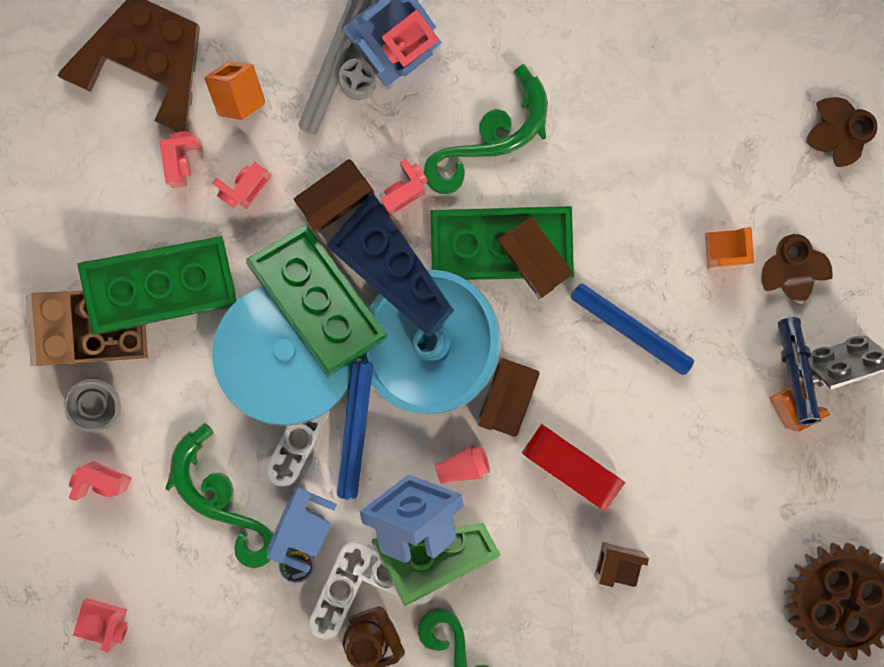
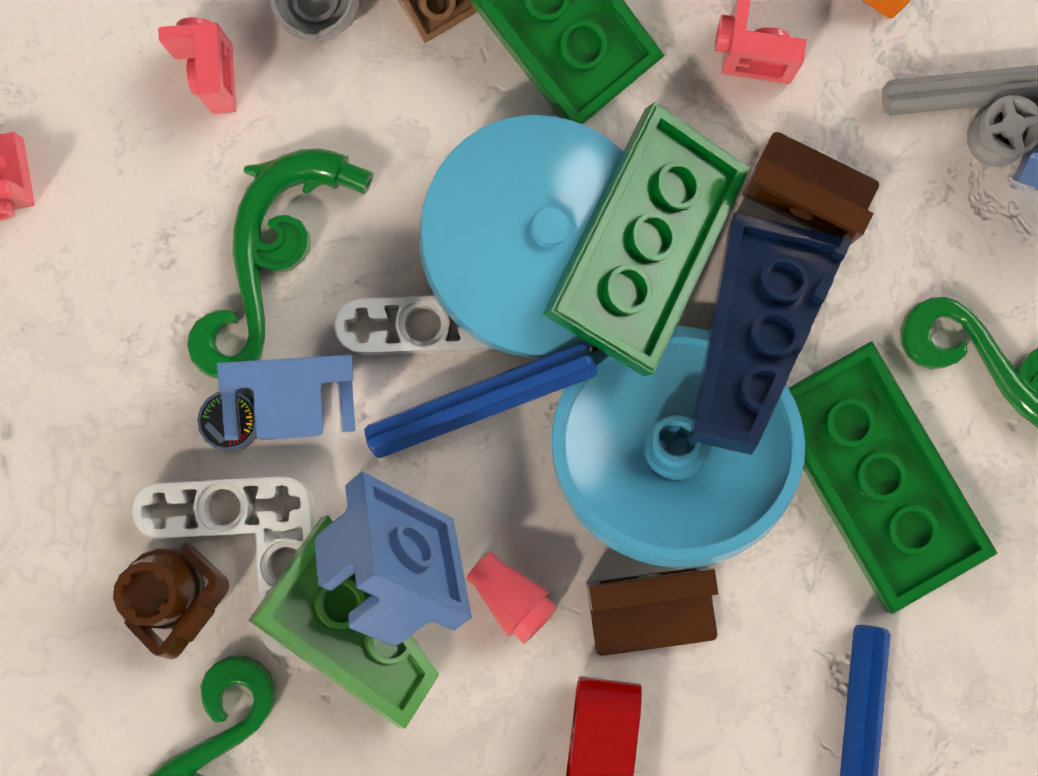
camera: 70 degrees right, 5 degrees down
(403, 194) = (874, 288): coral bracket -> none
(534, 257) = (890, 536): reddish brown panel -> none

